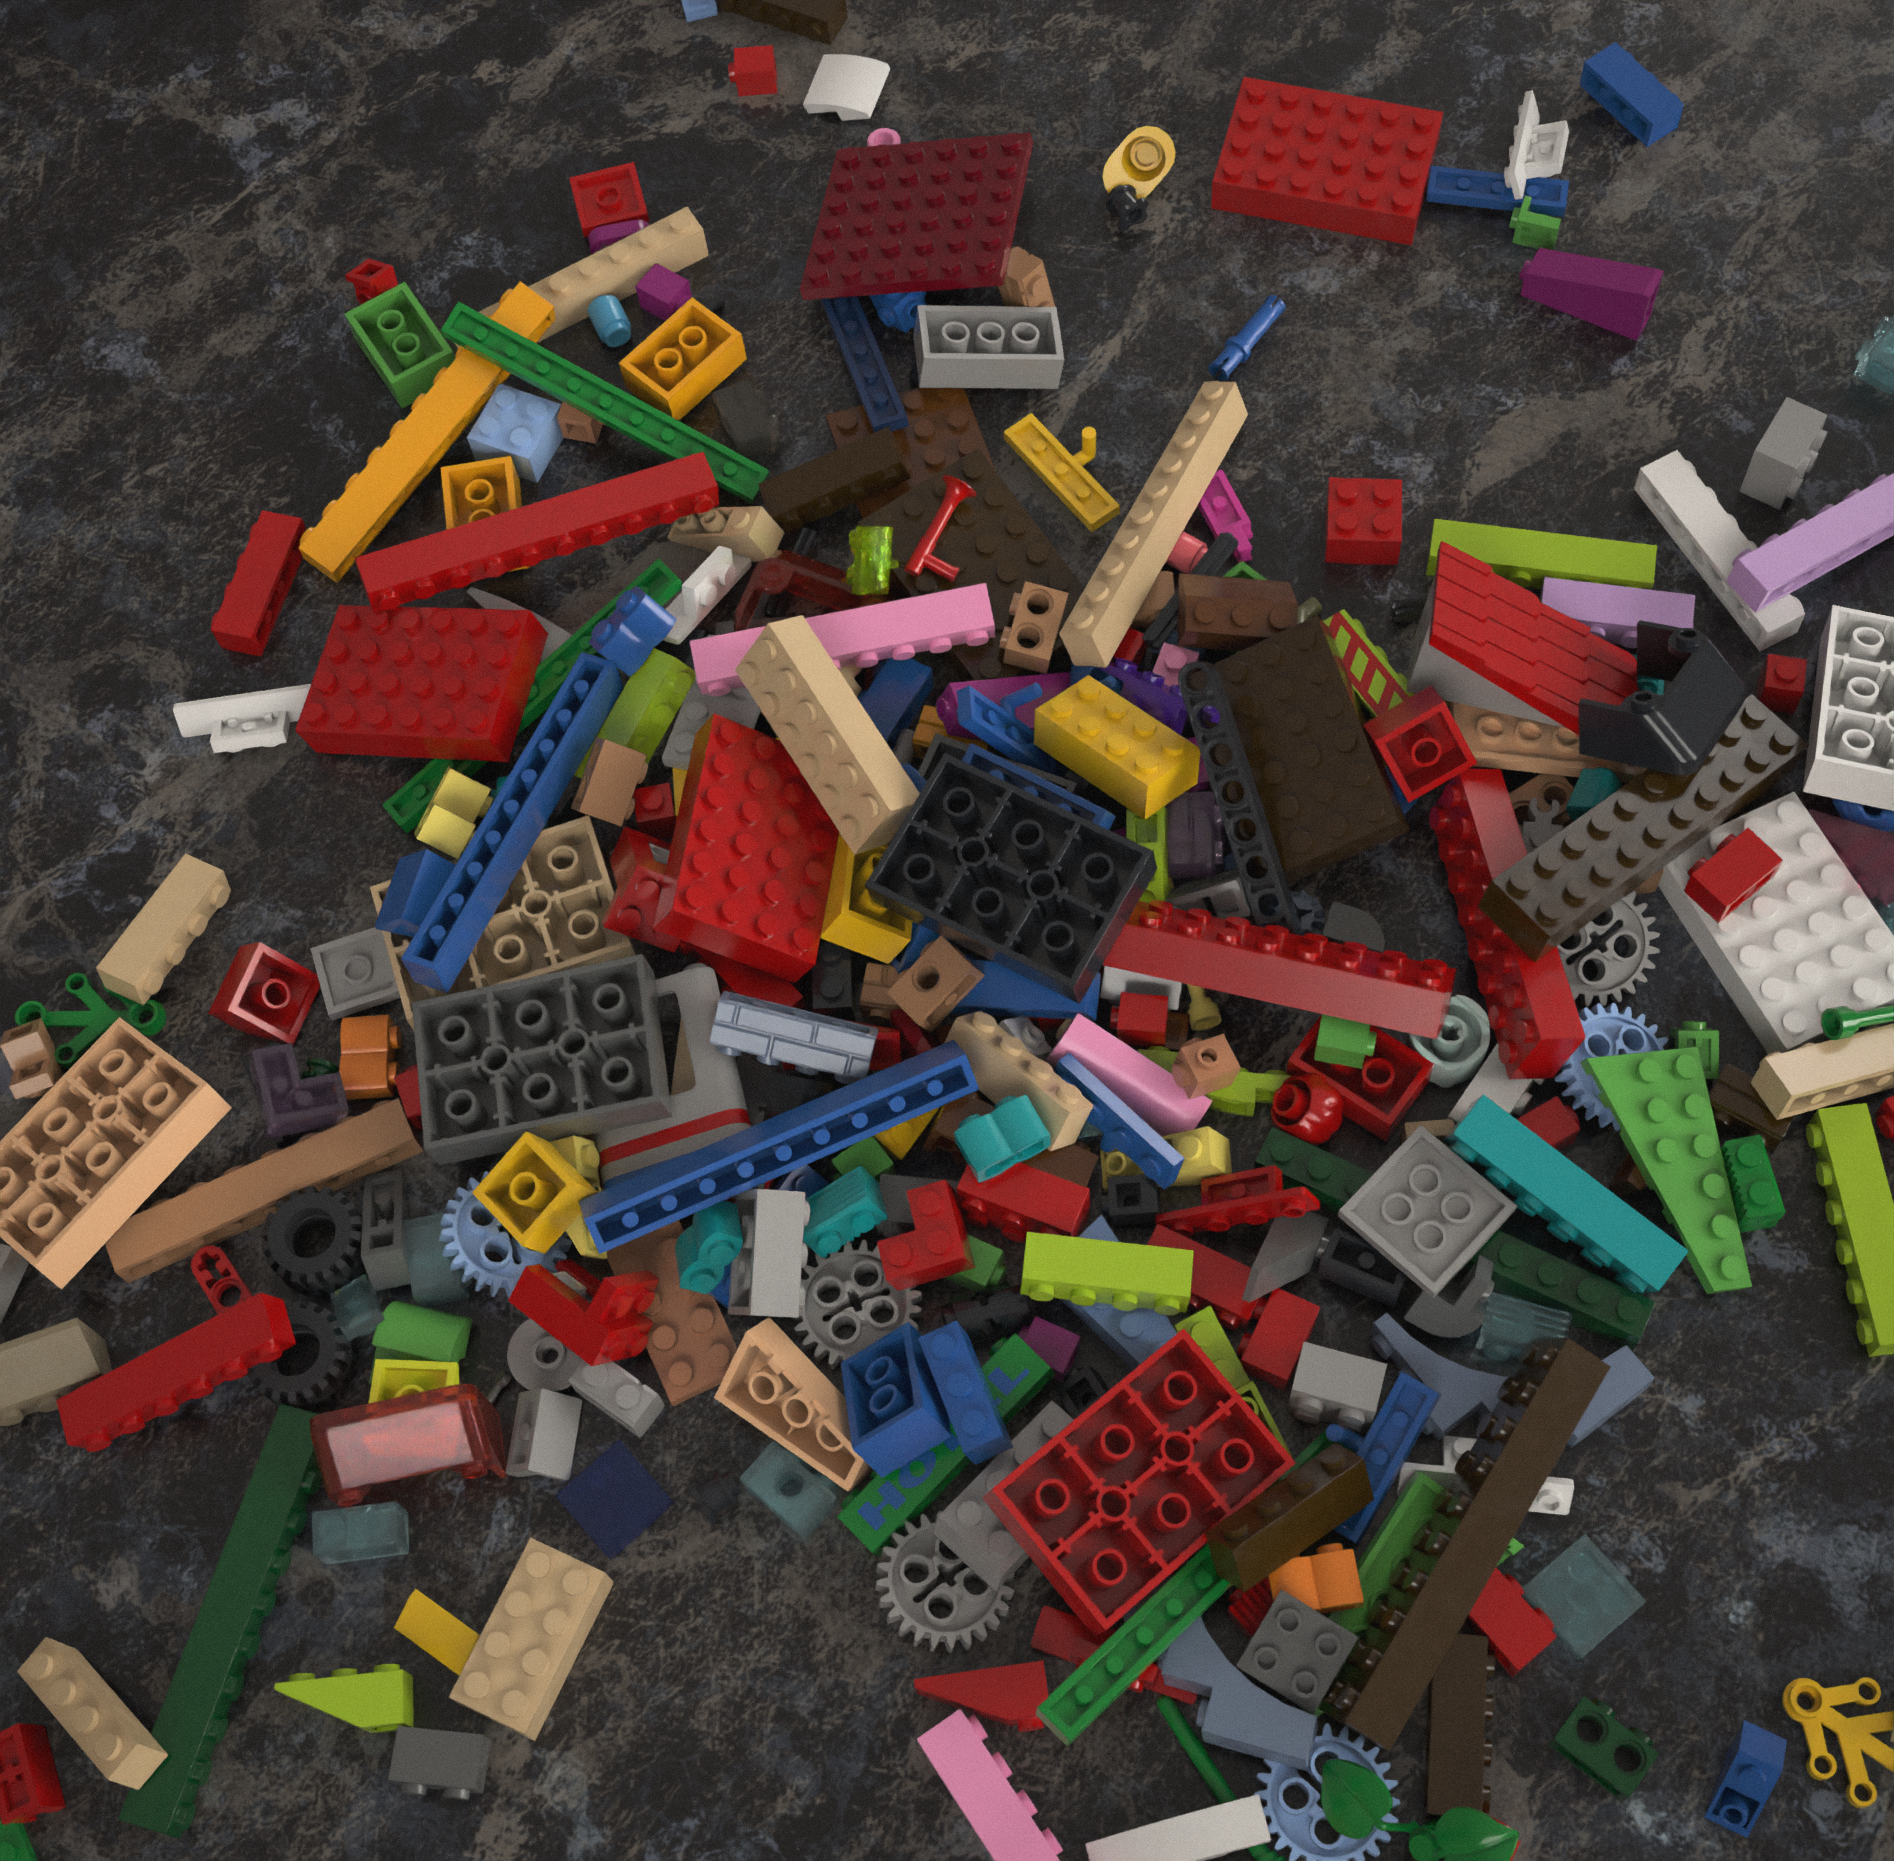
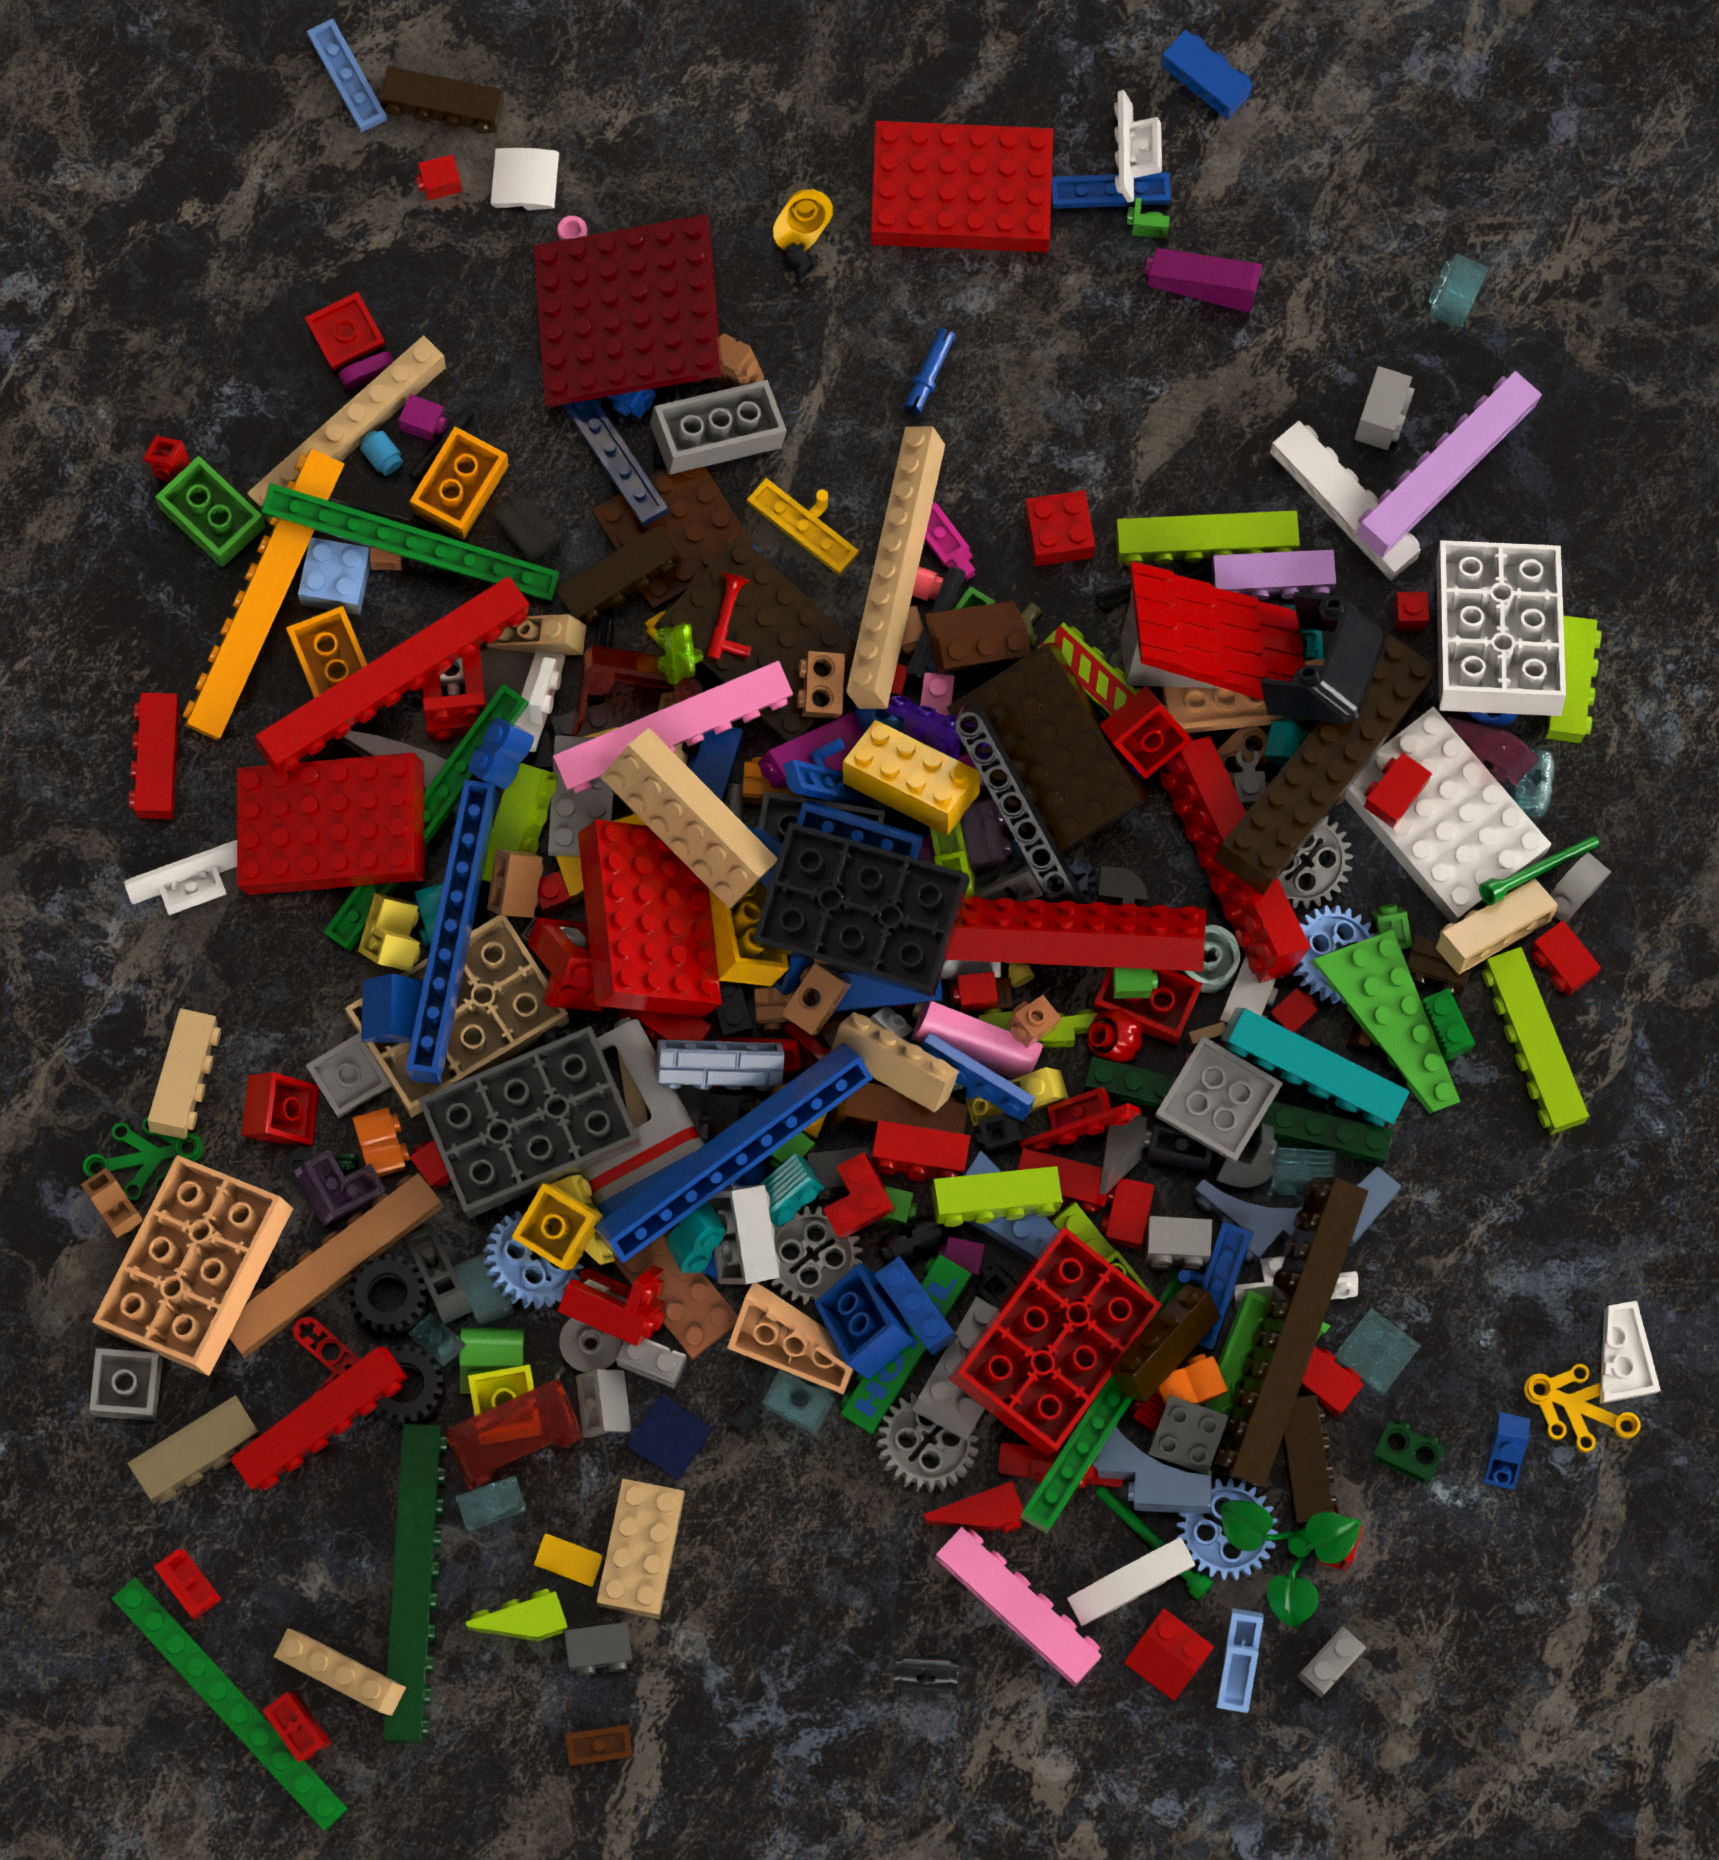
camera: 25 degrees left, 10 degrees up
(601, 575) = (454, 713): none -> red brick
(1002, 1137) = (898, 1111): teal brick -> none

